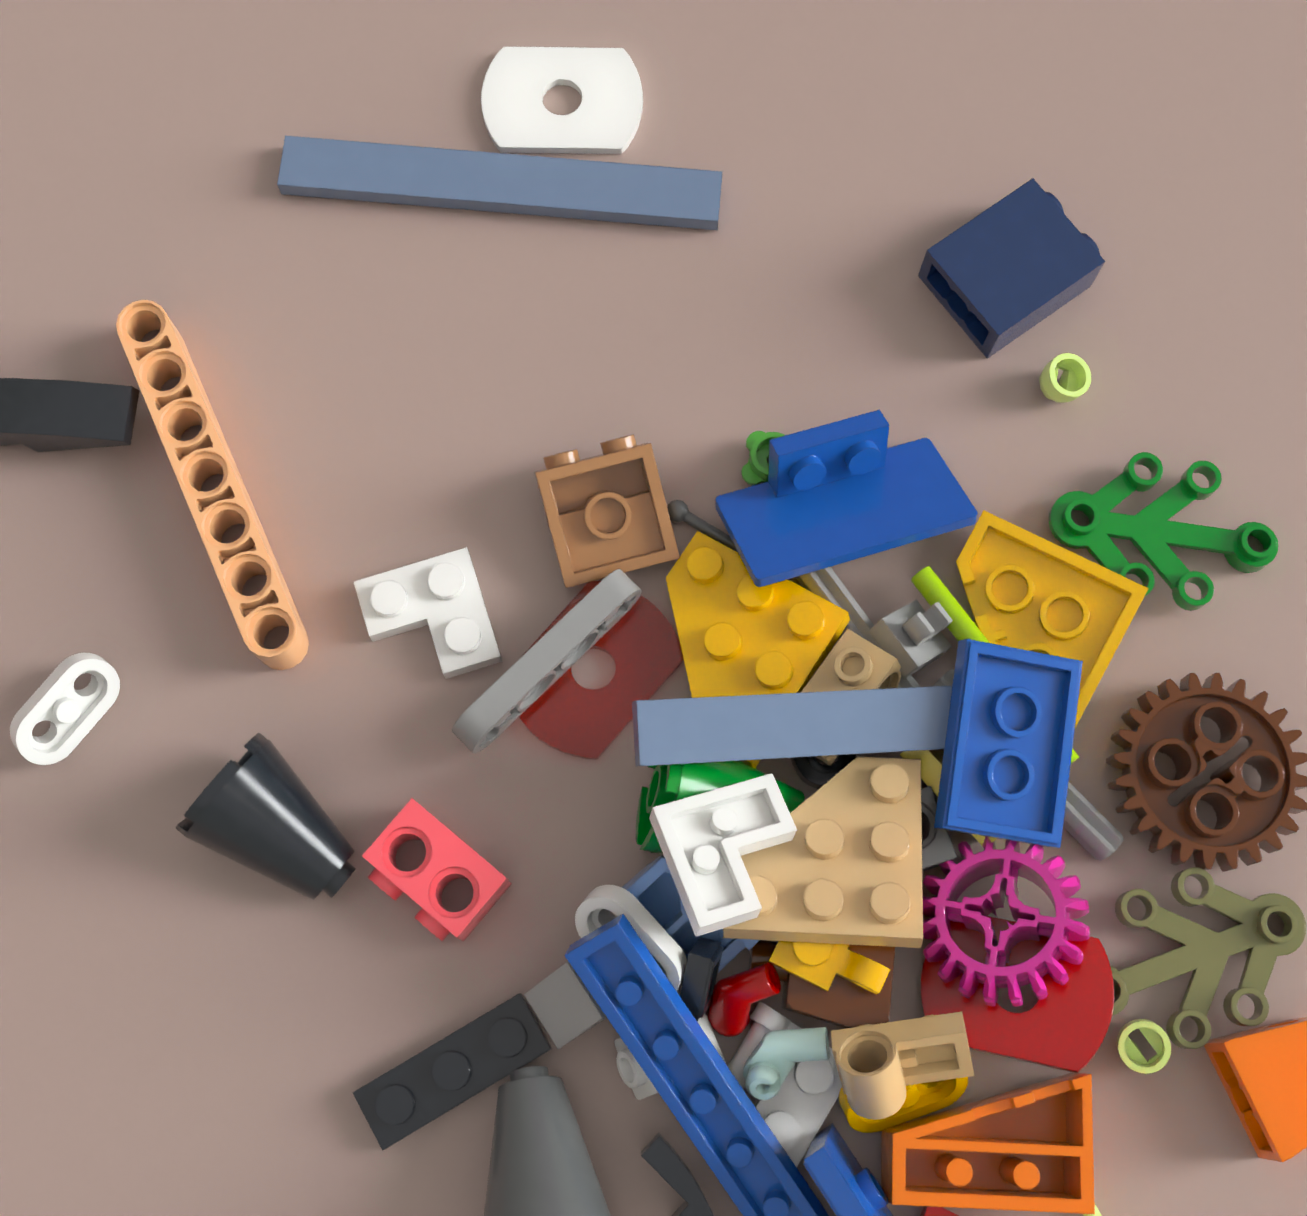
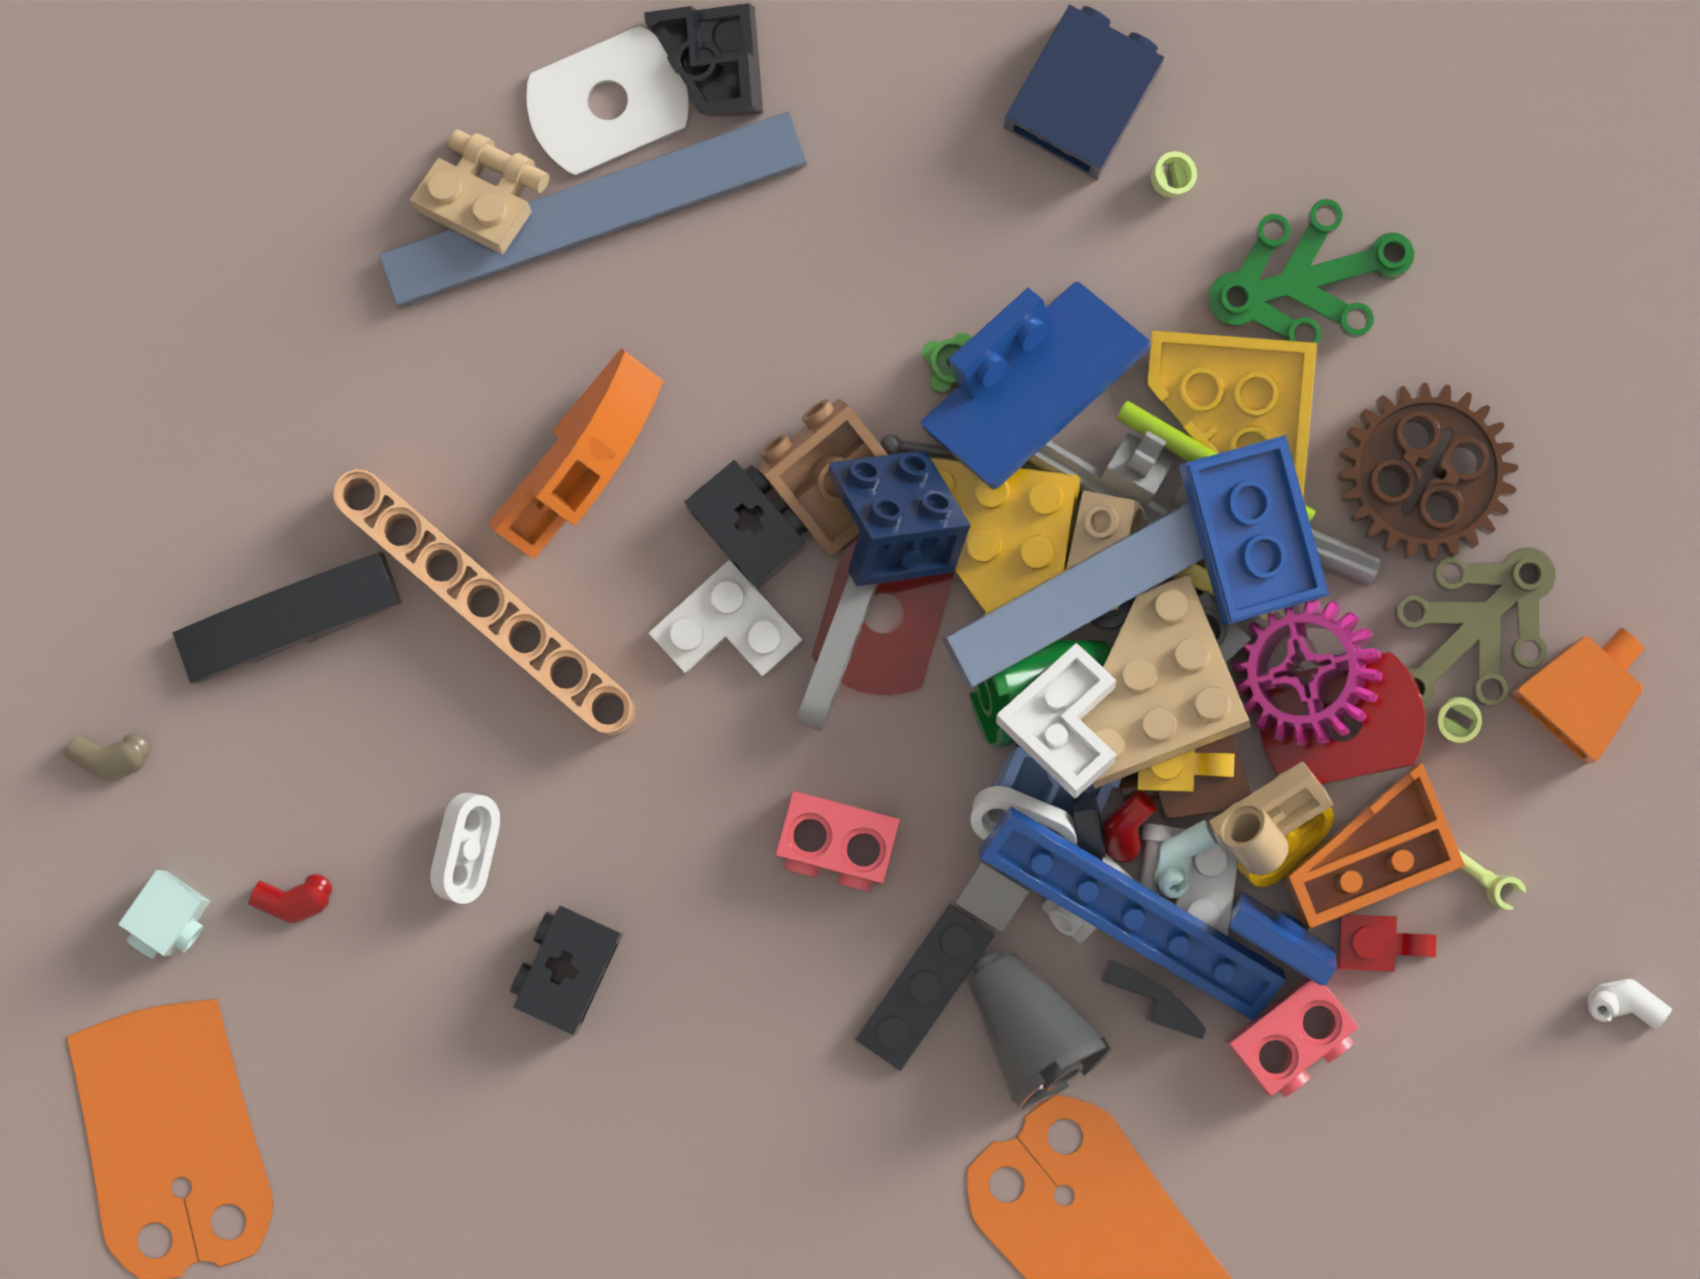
camera: 20 degrees left, 10 degrees up
(130, 871) = (592, 951): none -> black brick
(270, 823) = (686, 862): black cone -> none
(371, 385) = (584, 458): none -> orange slope
(392, 129) = (472, 205): none -> tan plate
(493, 487) = (717, 511): none -> black brick
(650, 573) = (903, 516): none -> dark blue bracket
(677, 99) = (713, 55): none -> black slope

